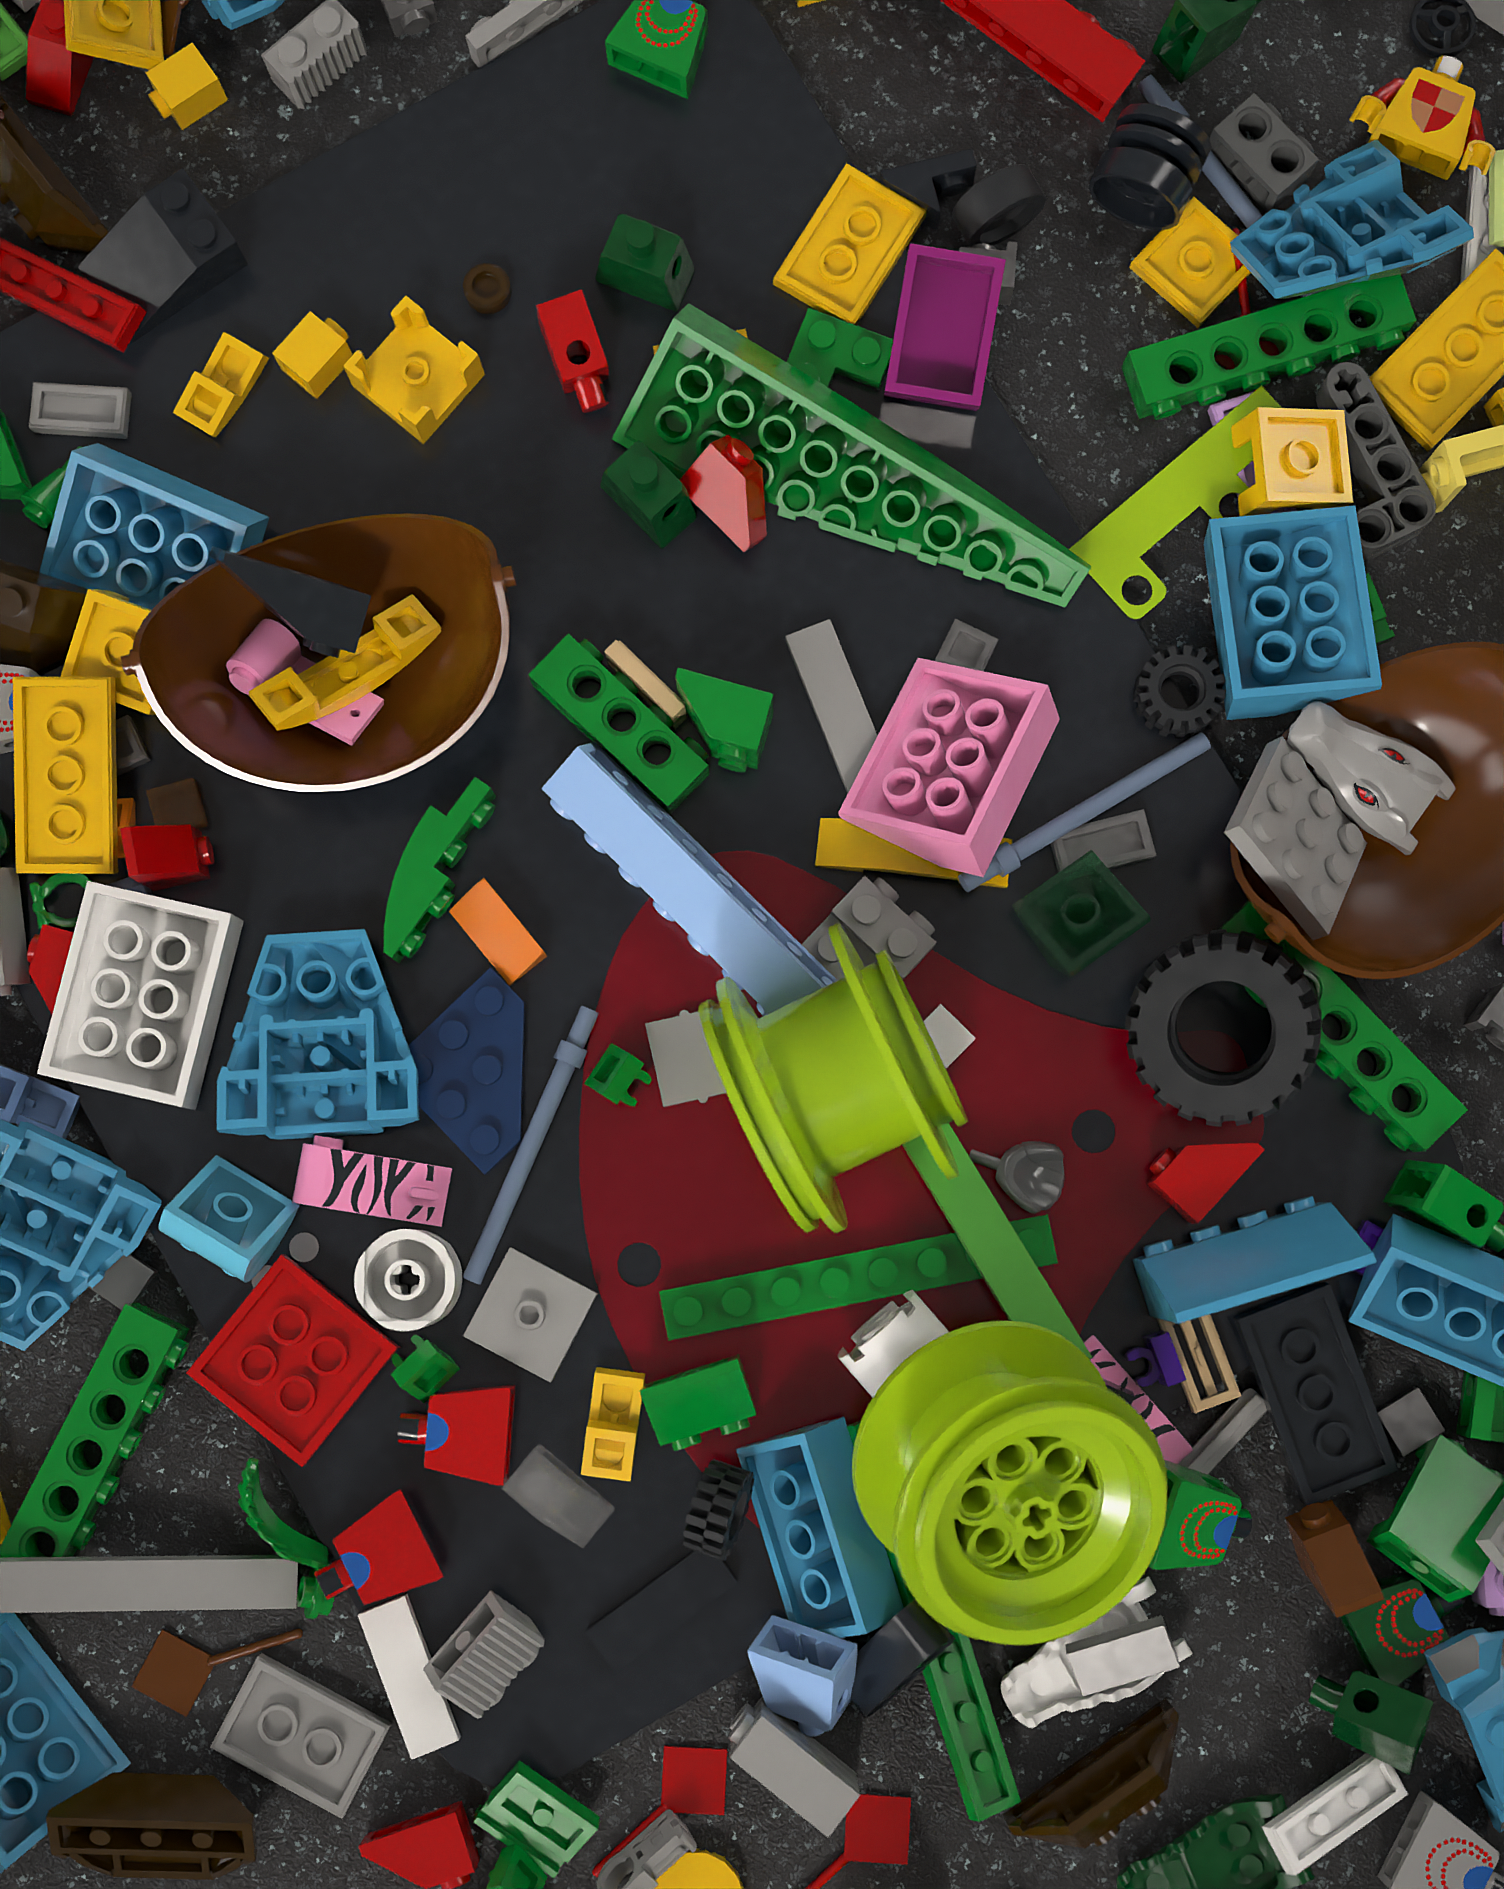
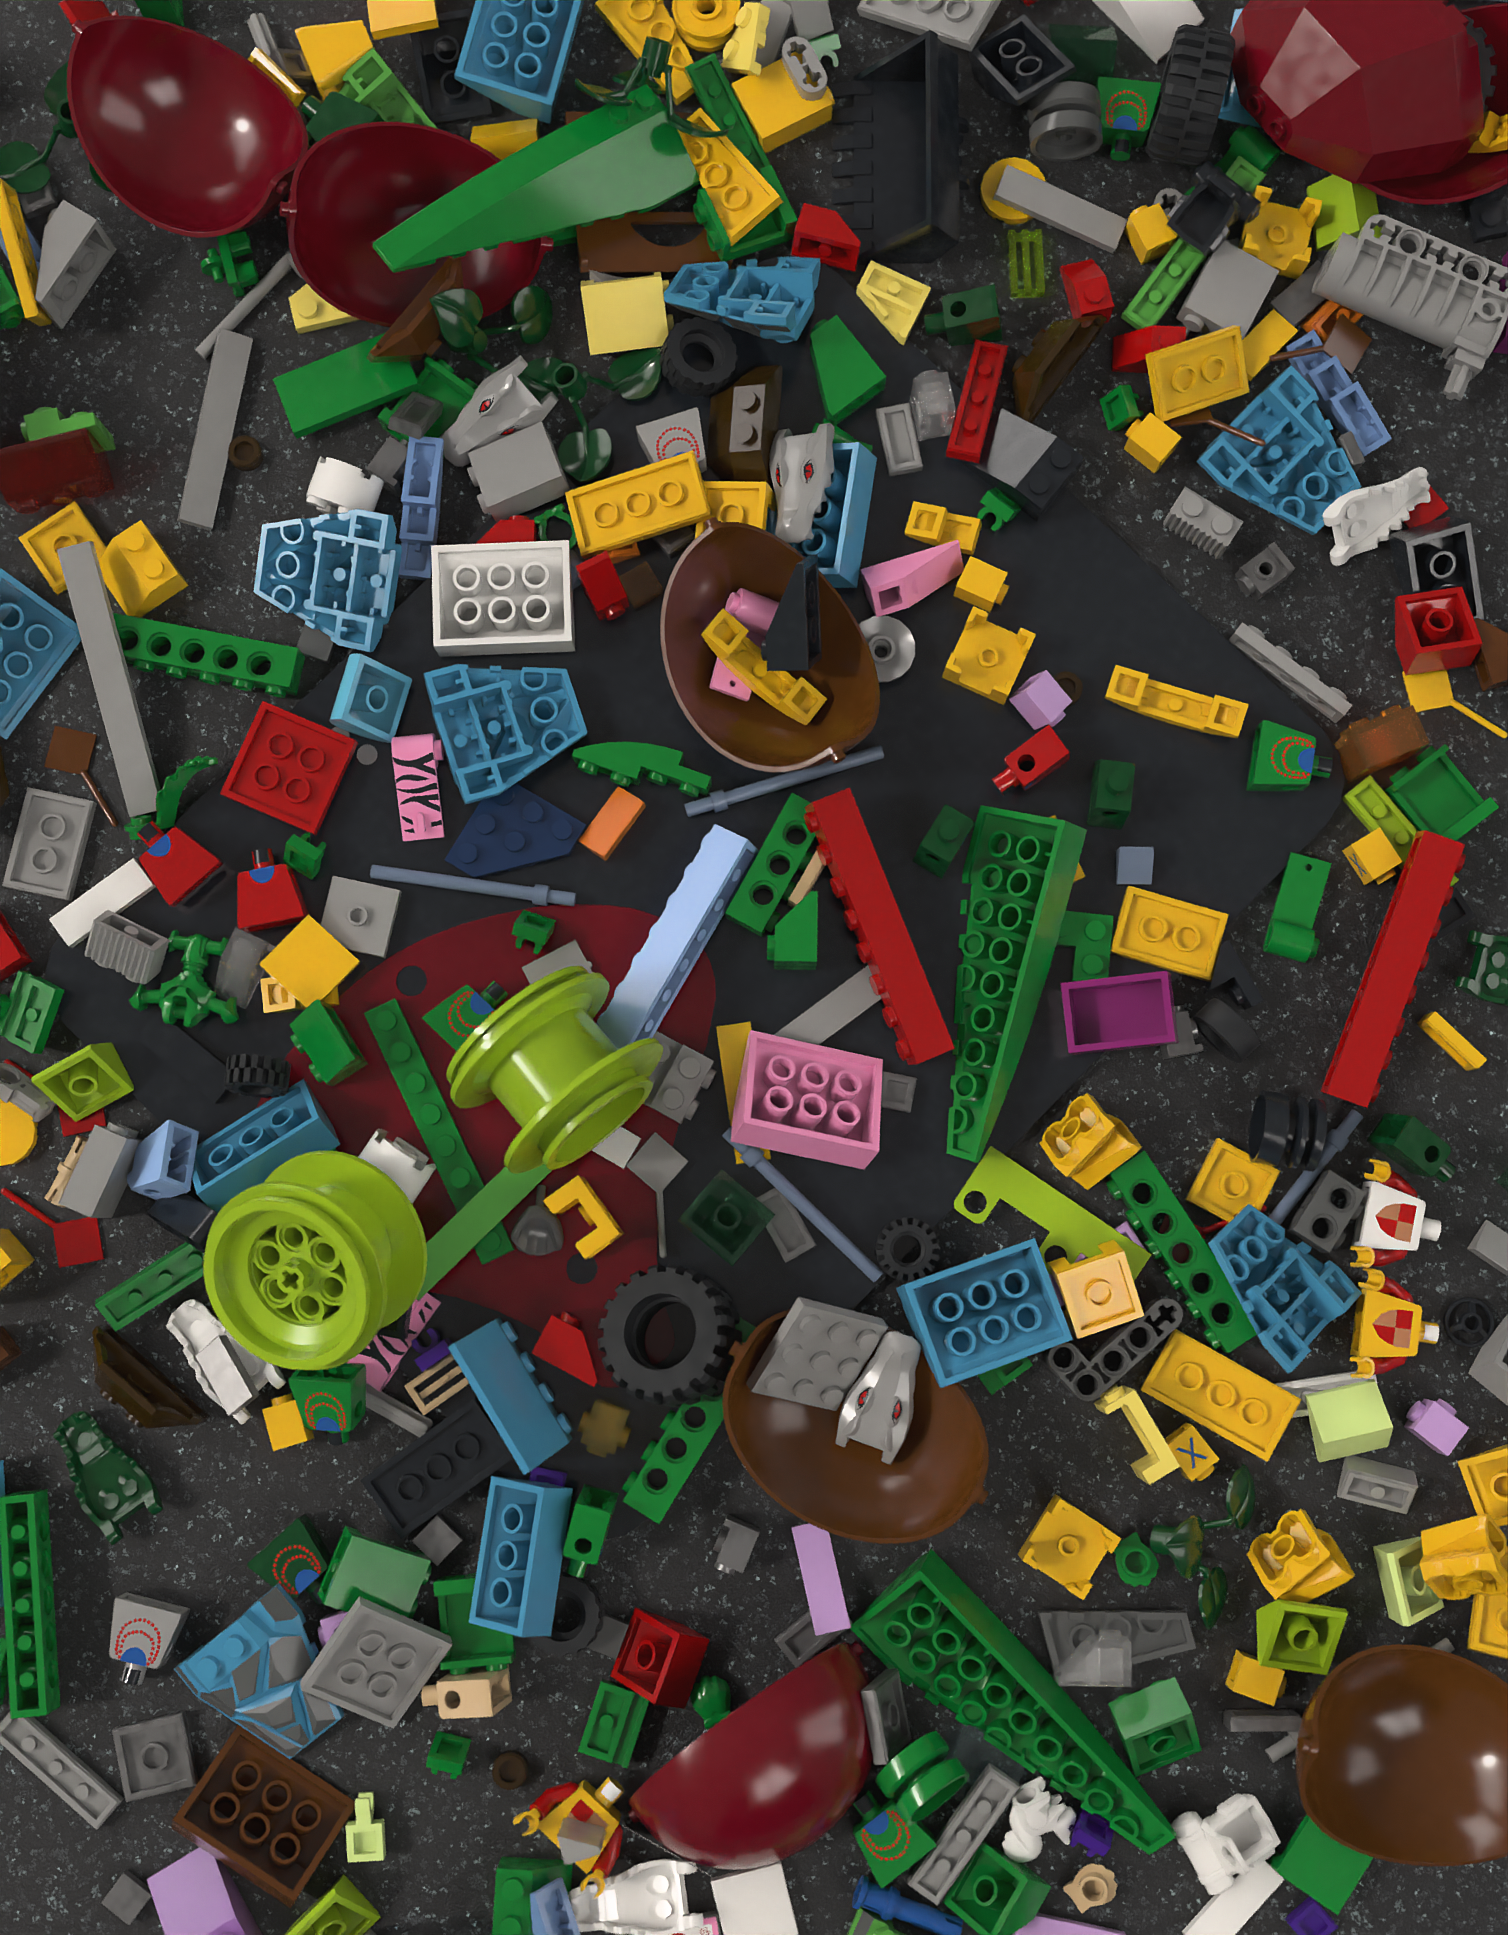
camera: 75 degrees right, 0 degrees up
(47, 344) = (932, 405): none -> clear brick
(95, 547) = (799, 474): none -> light grey animal
(125, 114) = (1120, 407): none -> green tile
(213, 301) = (1000, 505): none -> green tile
(278, 444) = (910, 578): none -> bright pink slope
(361, 486) = (897, 641): none -> light grey dish
(387, 1300) = (342, 820): white brick -> none
(495, 317) = (1041, 700): none -> lavender brick
(507, 778) = (720, 800): none -> sand blue bar
(552, 150) = (1175, 705): none -> yellow slope
(574, 1583) = (188, 994): none -> green piece
(579, 1397) = (309, 962): none -> yellow tile
(658, 1760) = (85, 1080): none -> lime slope
(718, 1194) = (464, 1012): none -> green torso
(730, 490) = (961, 895): slope -> none
(742, 608) = (878, 927): none -> red brick
(748, 264) = (1134, 865): none -> sand blue slope
(777, 1816) = (65, 1171): none -> tan pin
(861, 83) = (1296, 908): none -> green door
(983, 993) = (657, 1166): none -> light grey piece
(1064, 1086) = (593, 1212): none -> yellow panel
(1098, 420) = (1088, 1142): none -> yellow piece
(1204, 1591) = (285, 1423): none -> yellow brick
(1295, 75) = (1390, 1219): none -> torso
(1318, 1152) = (604, 1428): none -> clear yellow brick
(1333, 1558) = (327, 1504): reddish brown slope -> none
(1333, 1812) = (160, 1548): white tile -> none
(1393, 1722) = (222, 1574): dark green torso -> none

